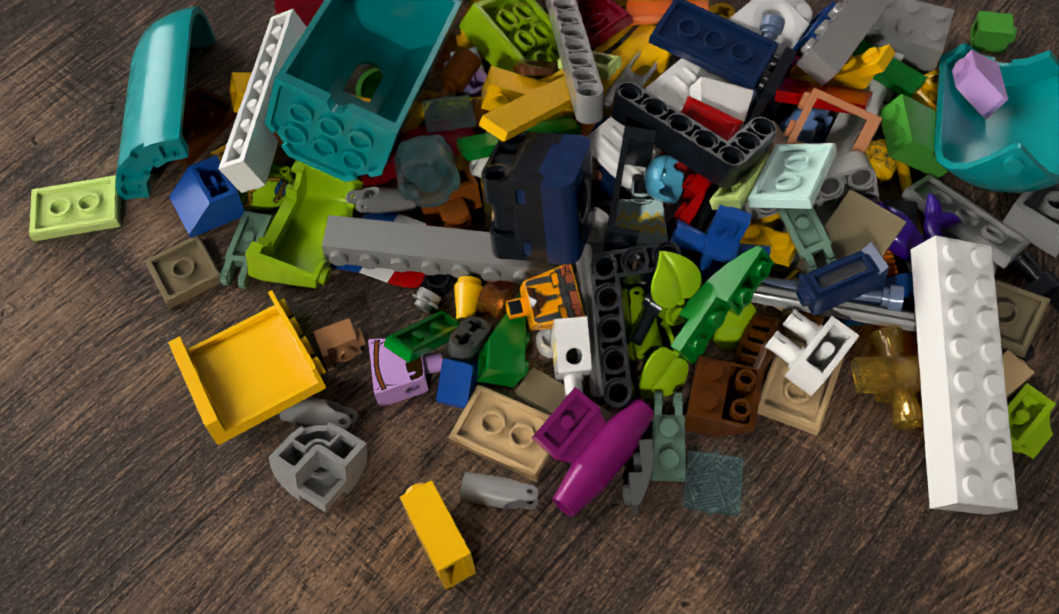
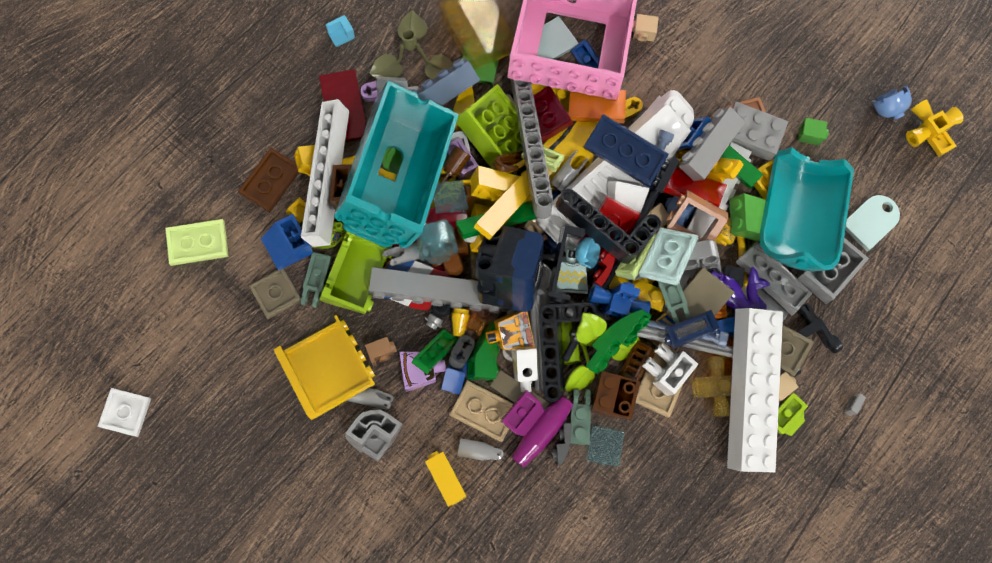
camera: 10 degrees left, 15 degrees up
(157, 98) = (249, 166): teal panel -> none
(980, 83) = (797, 178): lavender slope -> none

